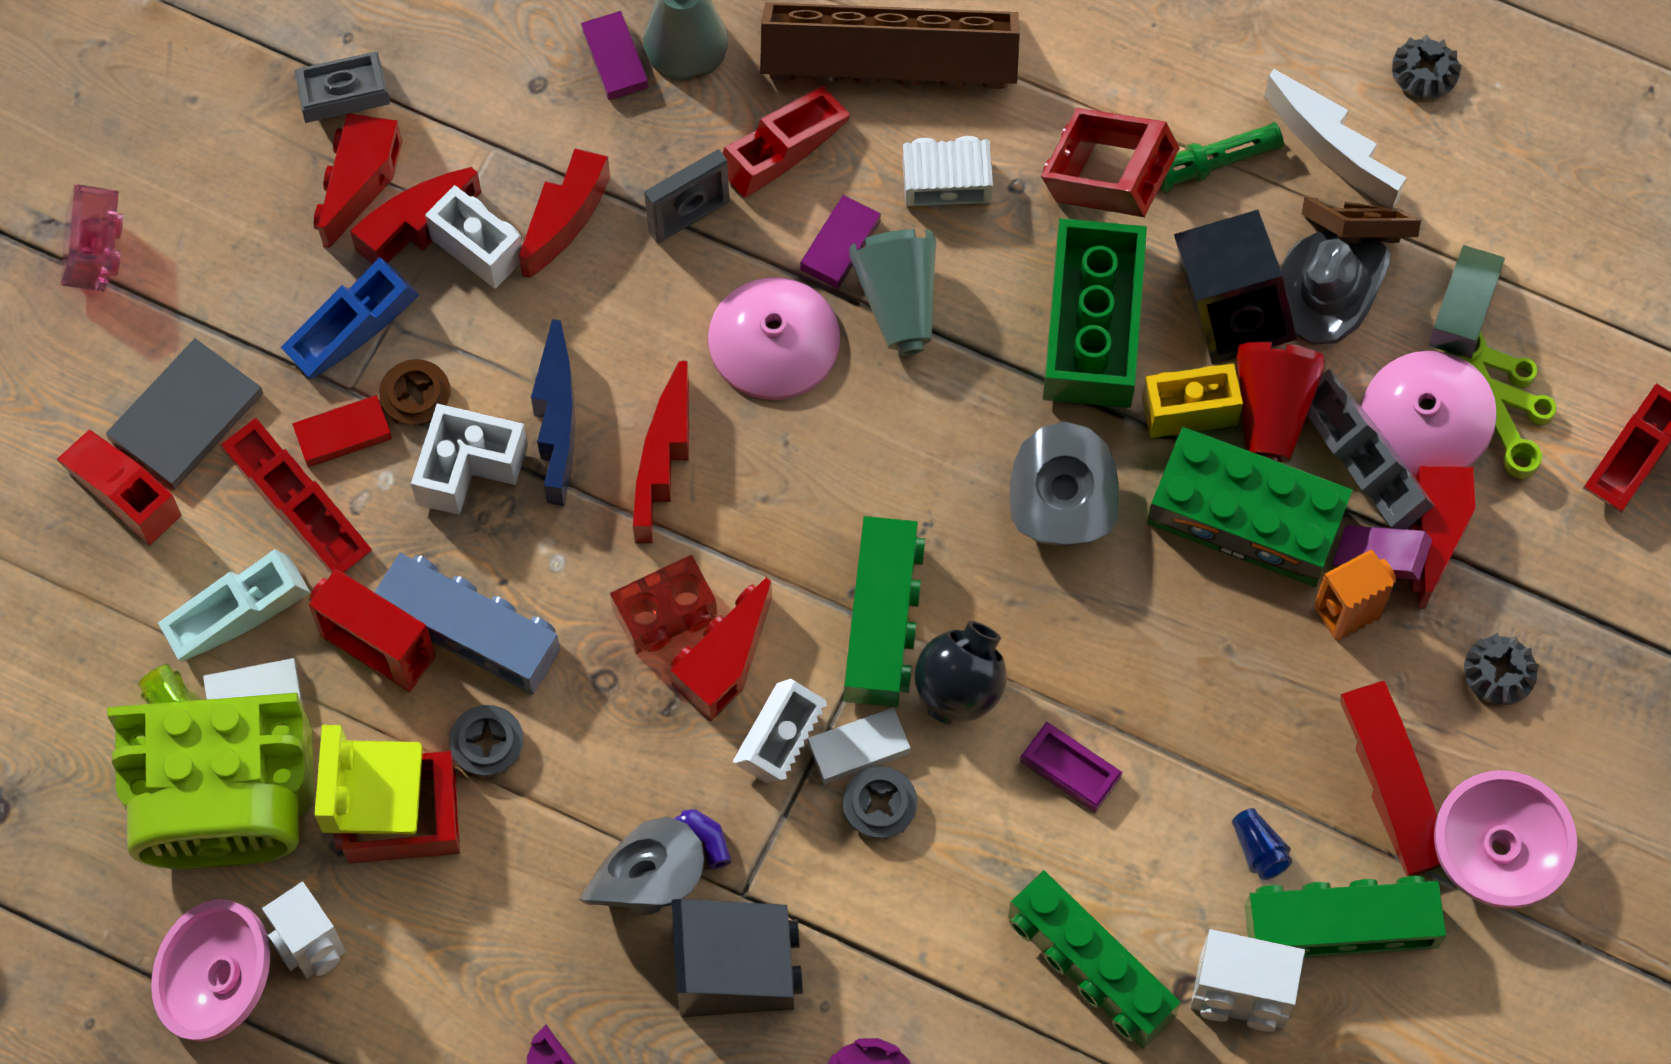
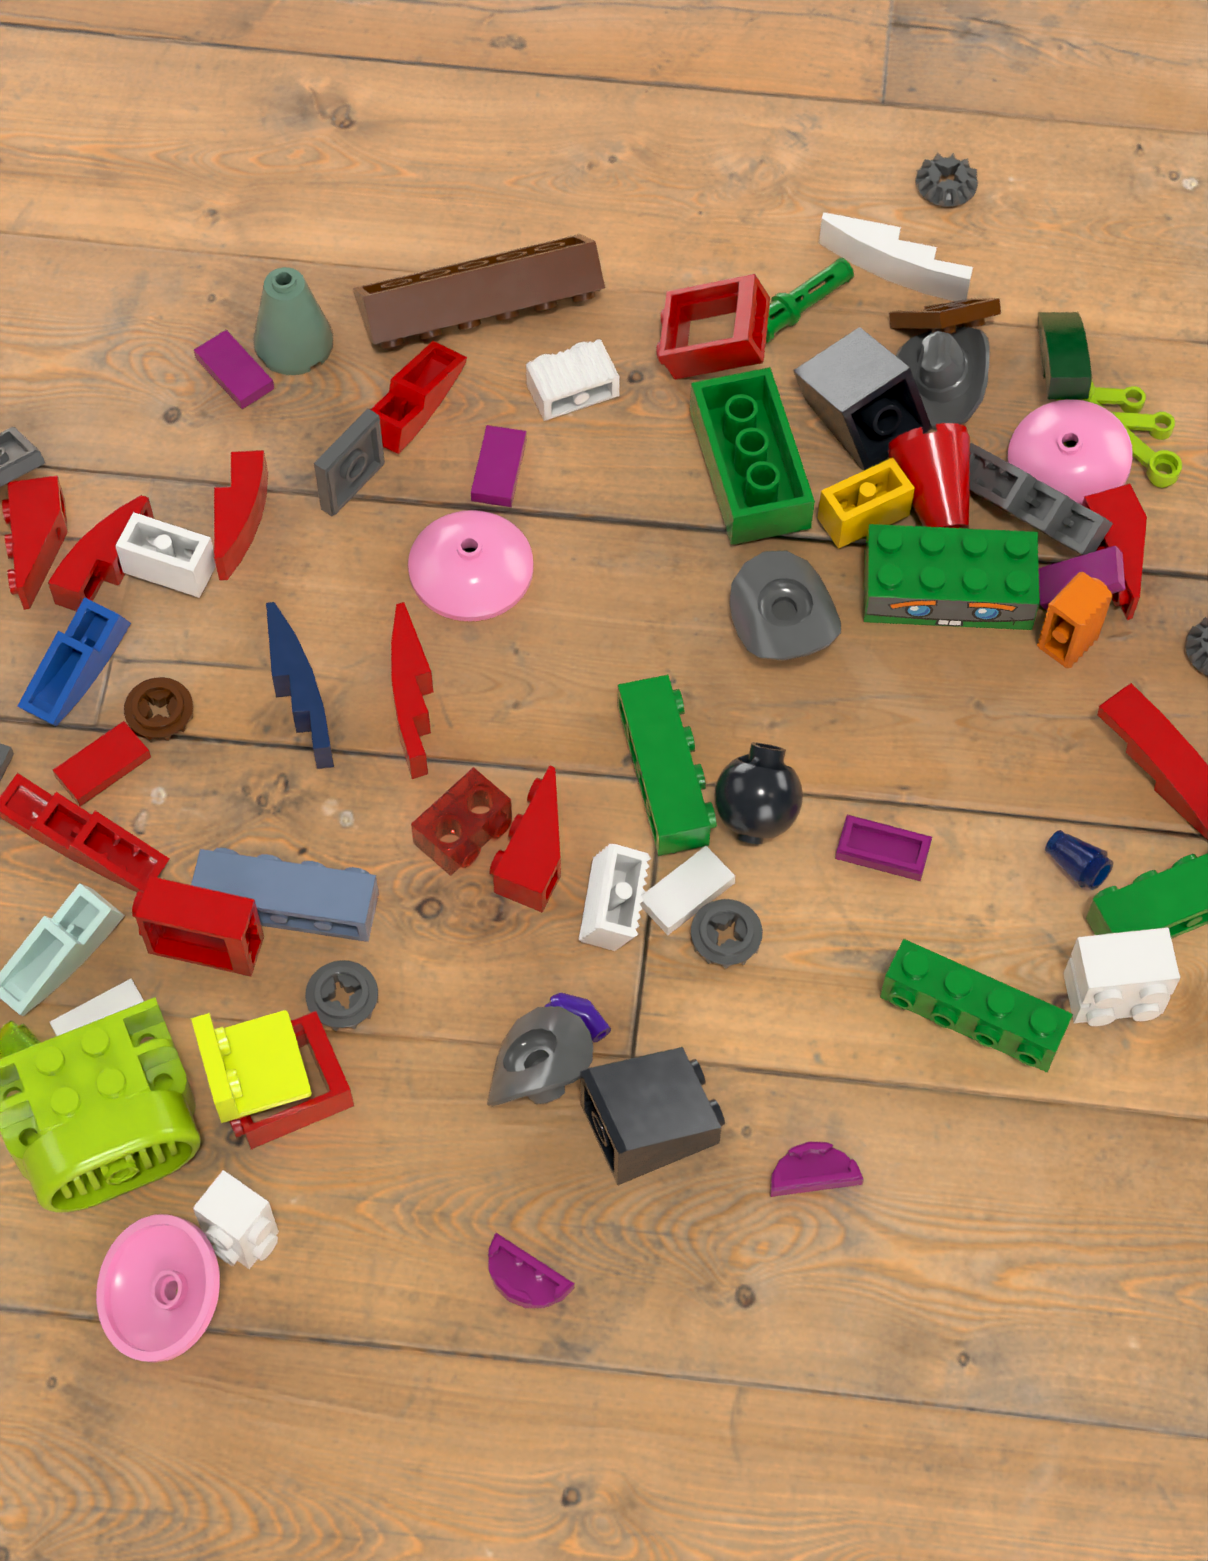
camera: 20 degrees left, 5 degrees down
(464, 446) = (228, 737): white brick -> none
(899, 285) = (568, 483): sand green cone -> none

